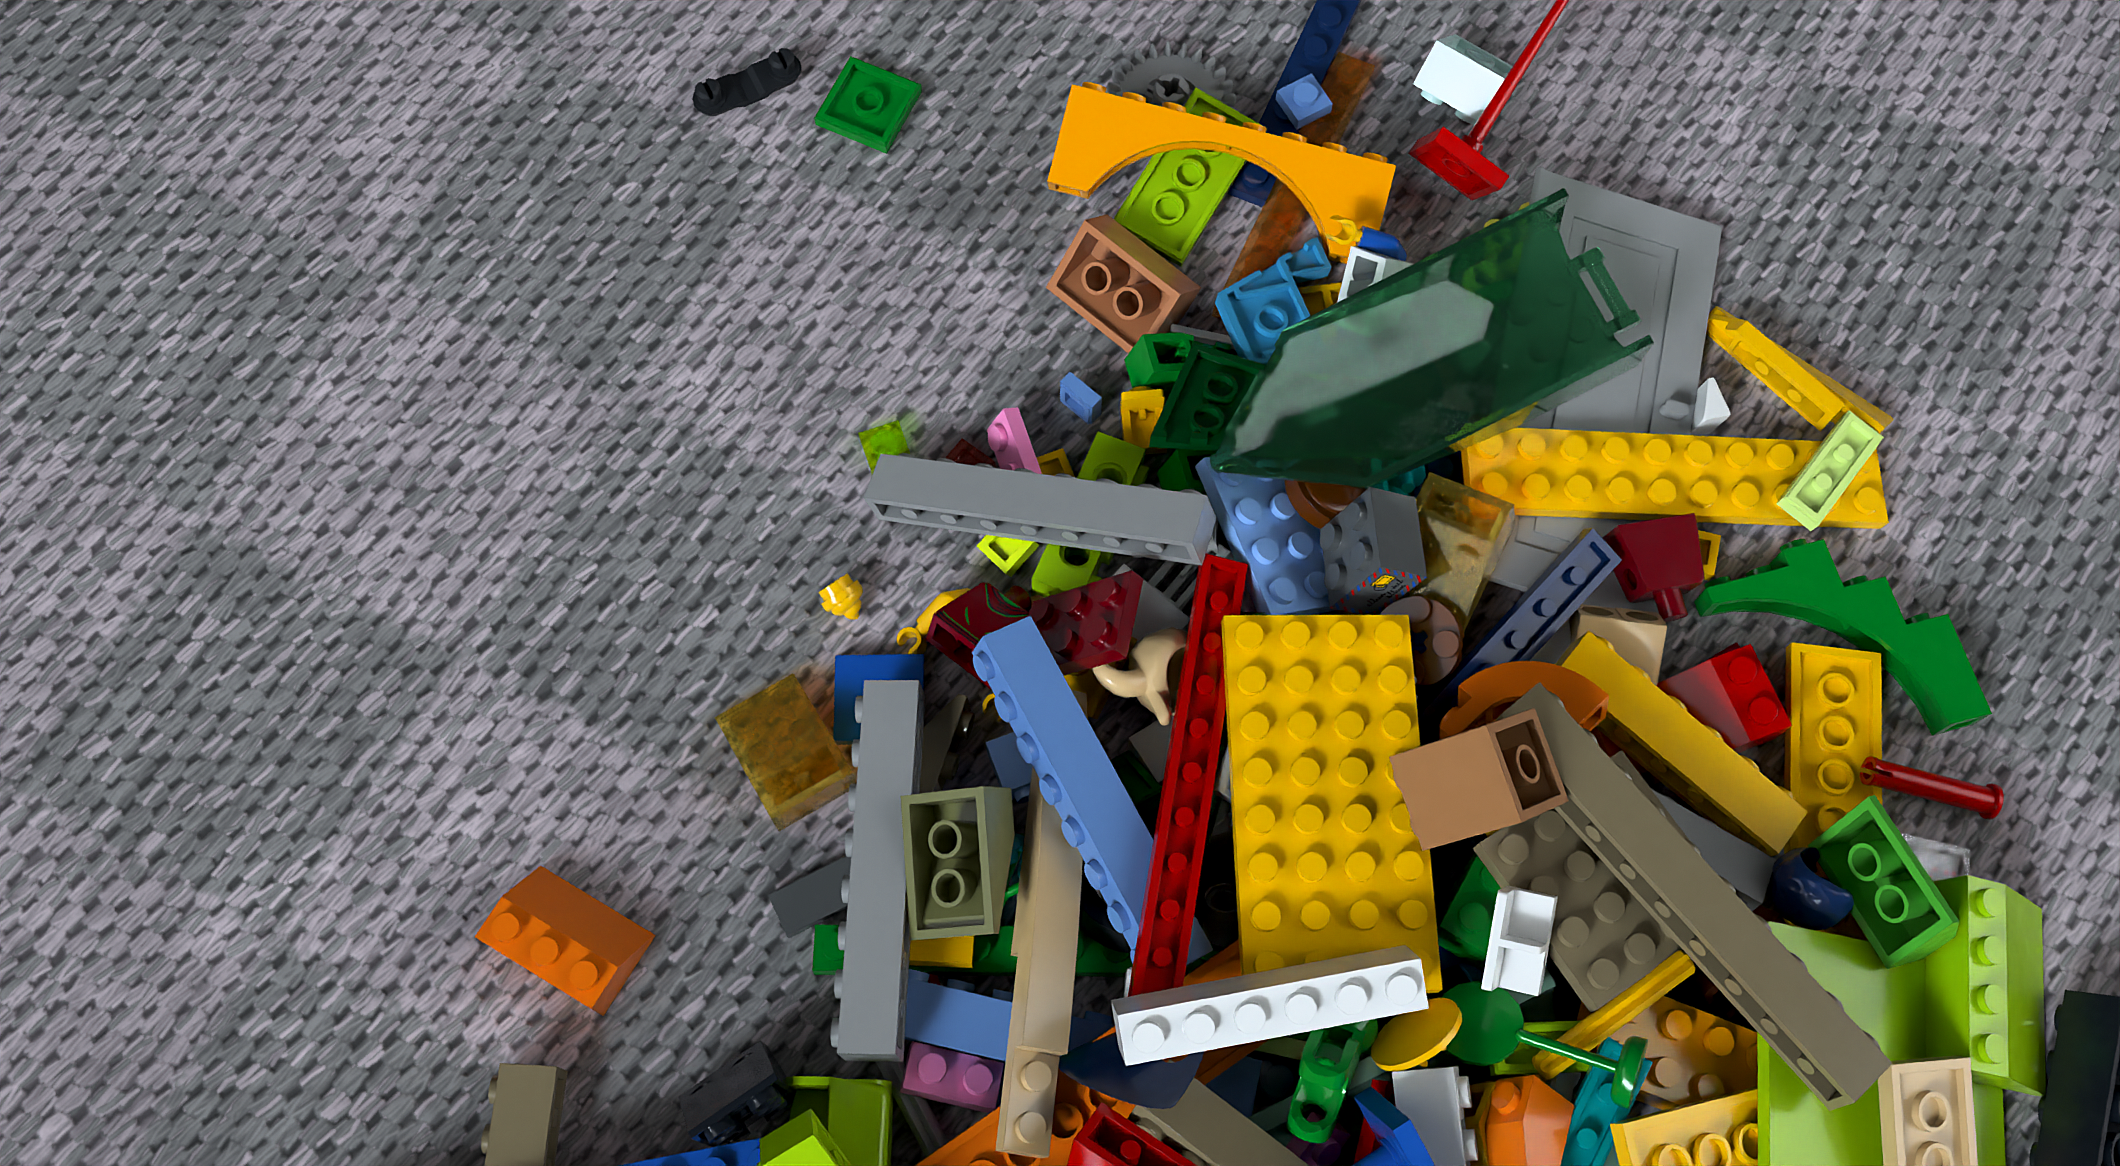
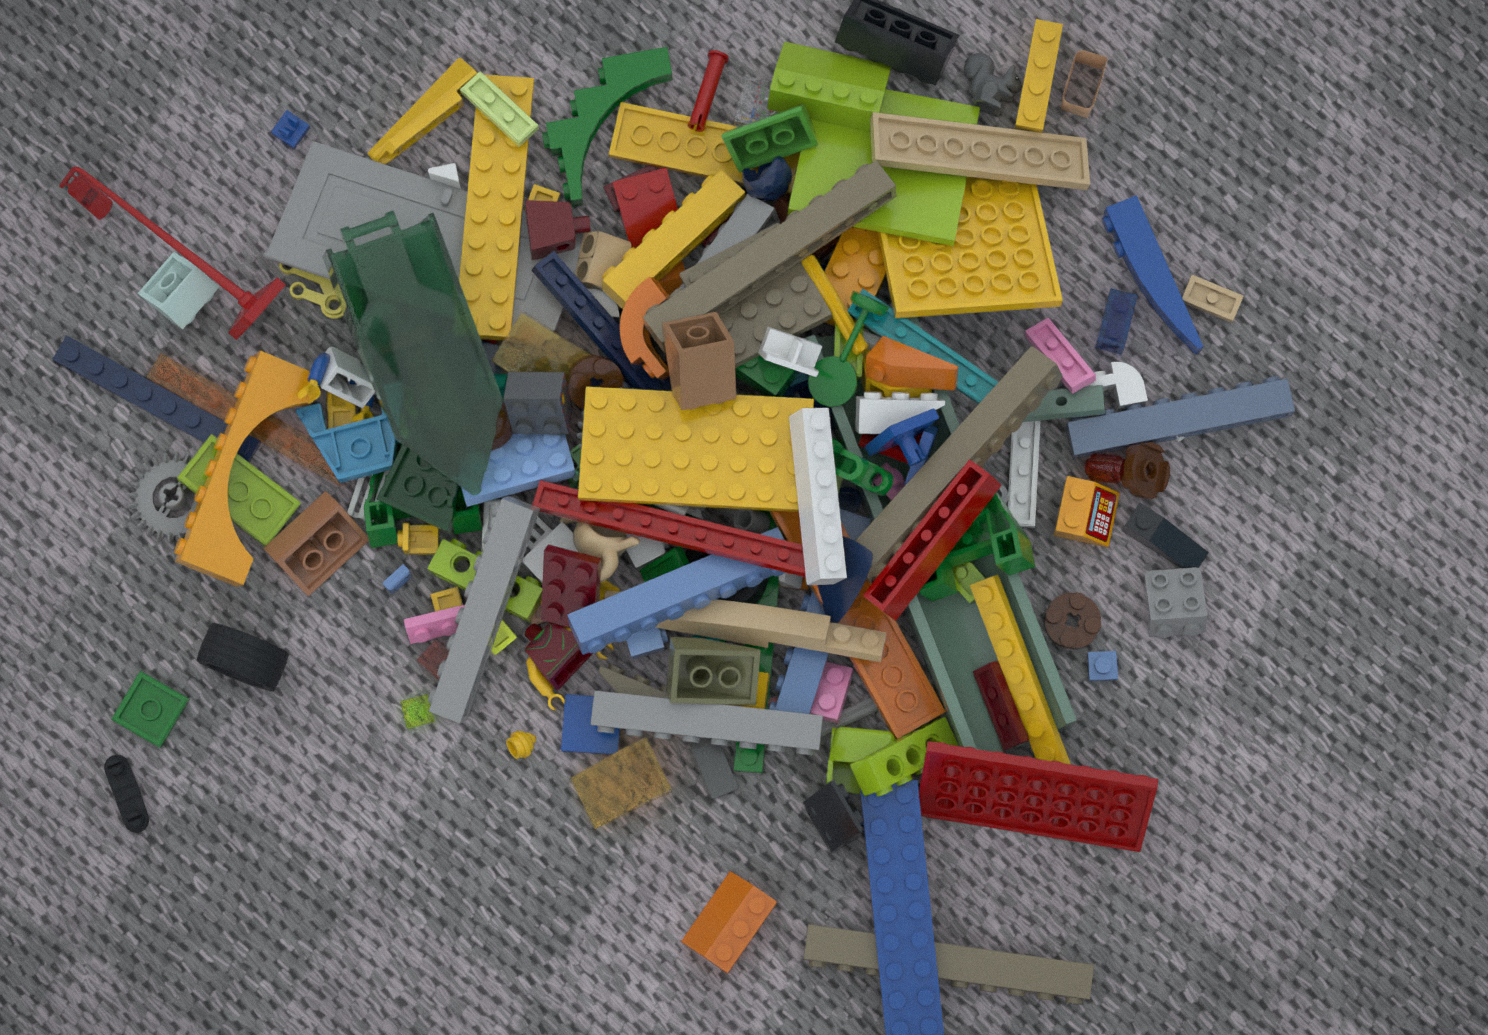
camera: 85 degrees left, 10 degrees up
(940, 190) = (242, 657): none -> black tyre
(1304, 101) = (189, 405): medium blue plate -> none
(1416, 1036) = (842, 416): yellow piece -> none
(1732, 200) = (290, 129): none -> blue tile

